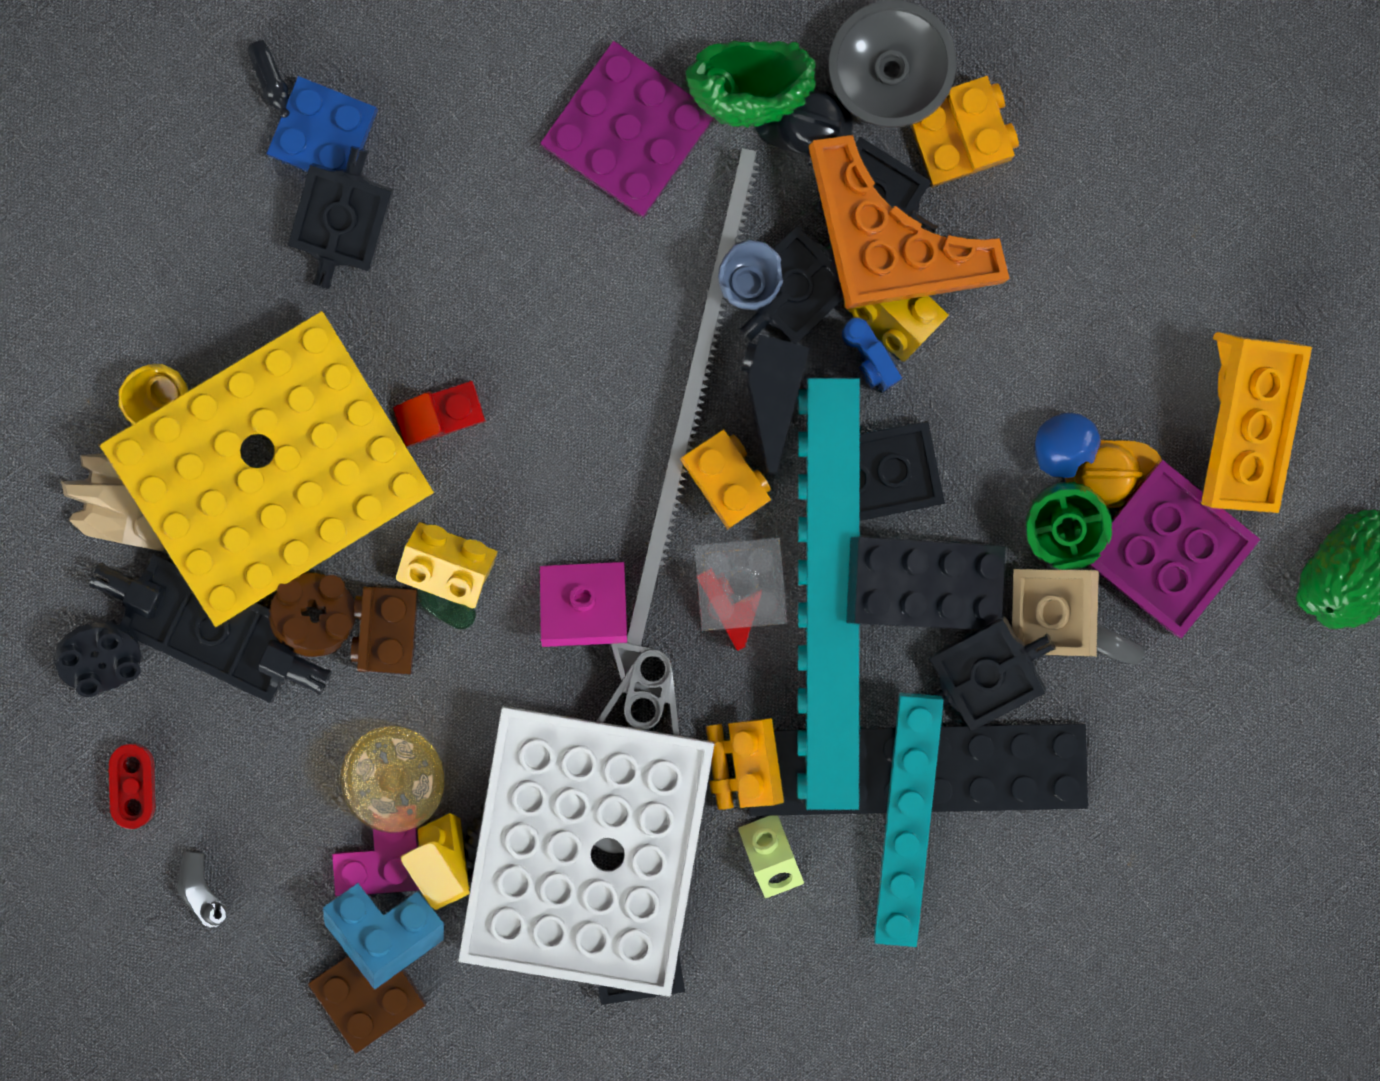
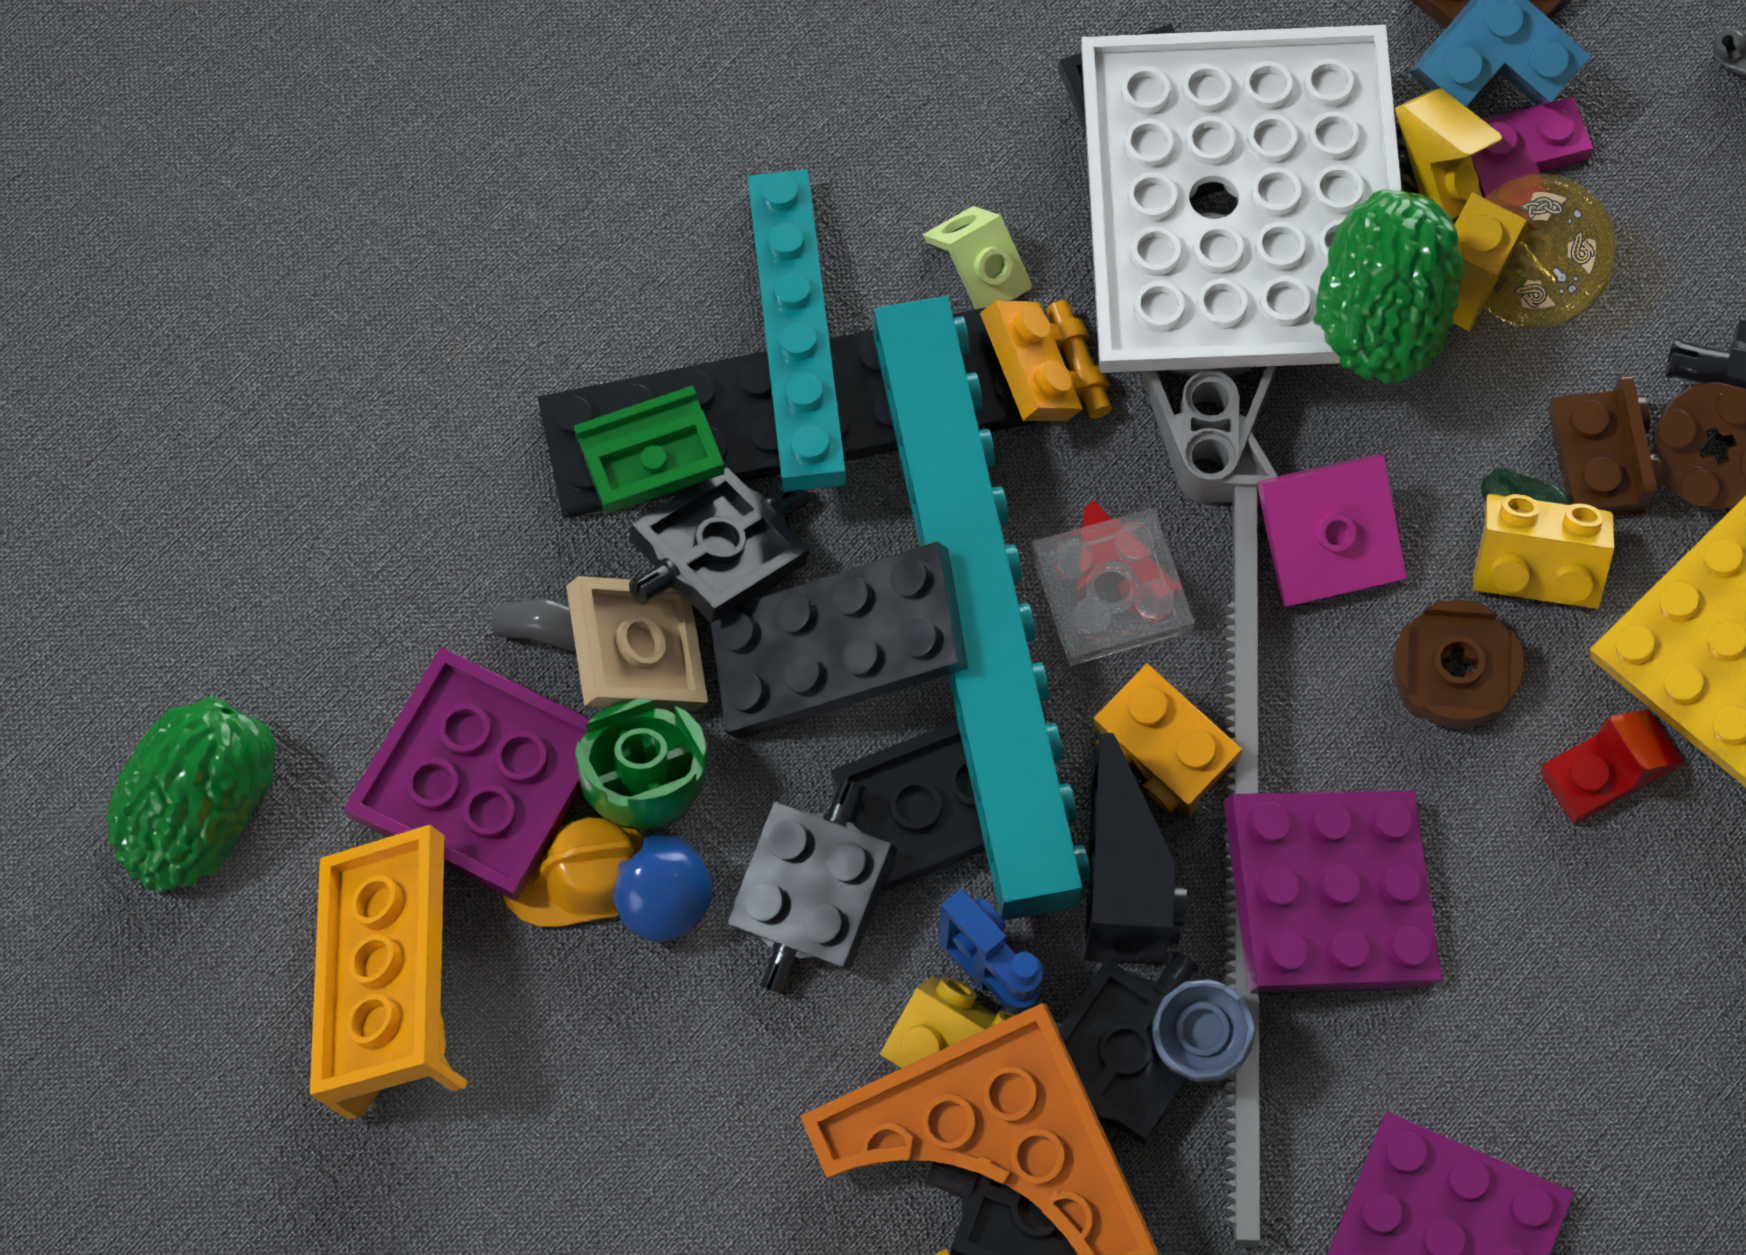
camera: 170 degrees right, 20 degrees down
(439, 782) = (1486, 241): none -> yellow slope
(510, 478) = (1432, 690): none -> reddish brown plate
(510, 751) = (1390, 286): none -> green hair
(643, 360) = (1331, 891): none -> magenta plate
(971, 429) = (812, 886): none -> plate
(1024, 745) = (649, 450): none -> green plate

